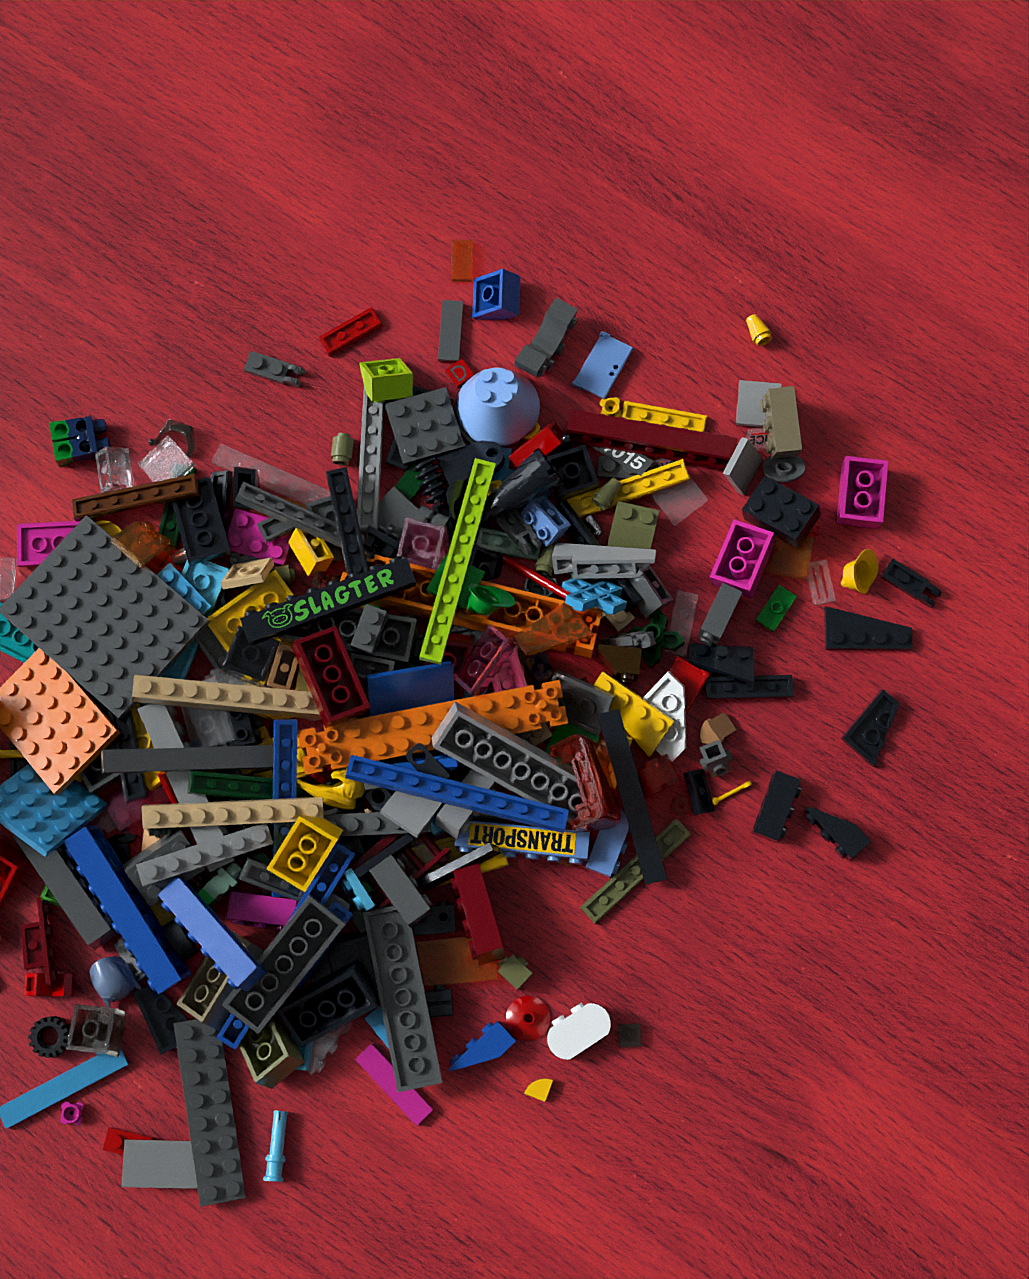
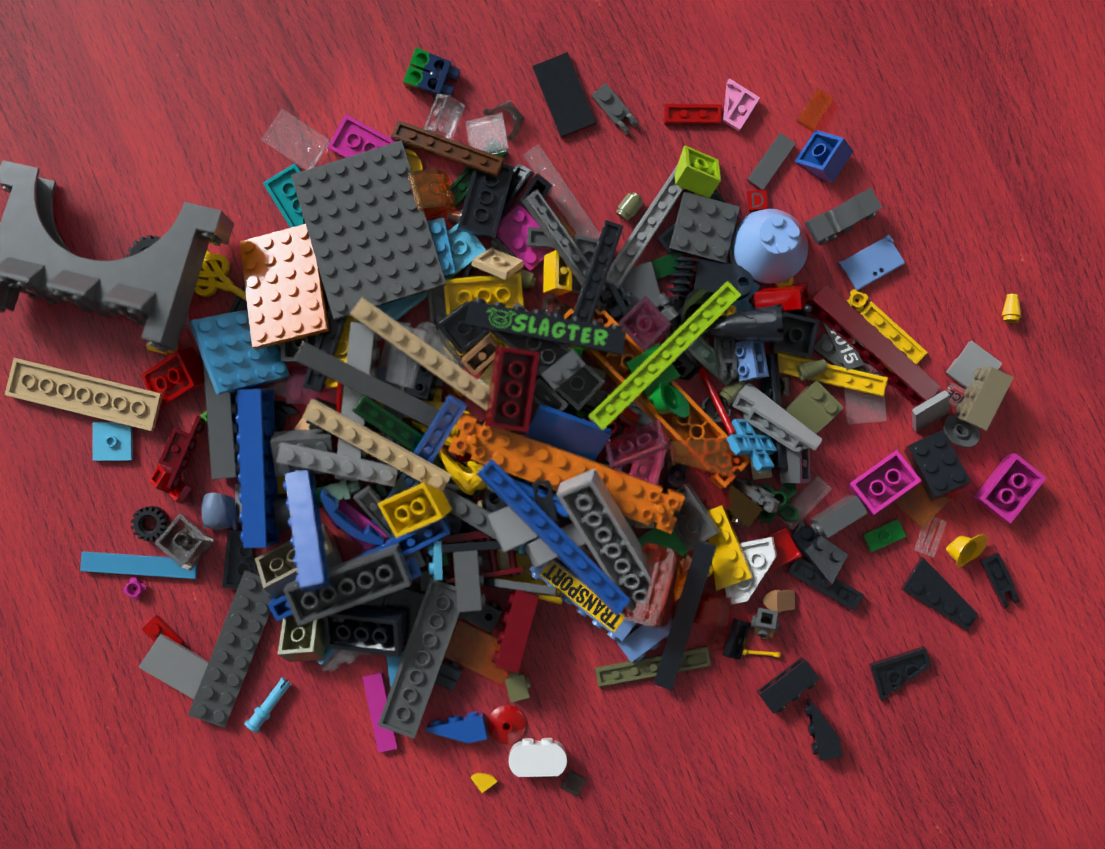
camera: 25 degrees right, 10 degrees up
(217, 385) = (564, 95): none -> black tile
(275, 906) = (367, 535): none -> blue slope
(387, 298) = (738, 104): none -> bright pink wing

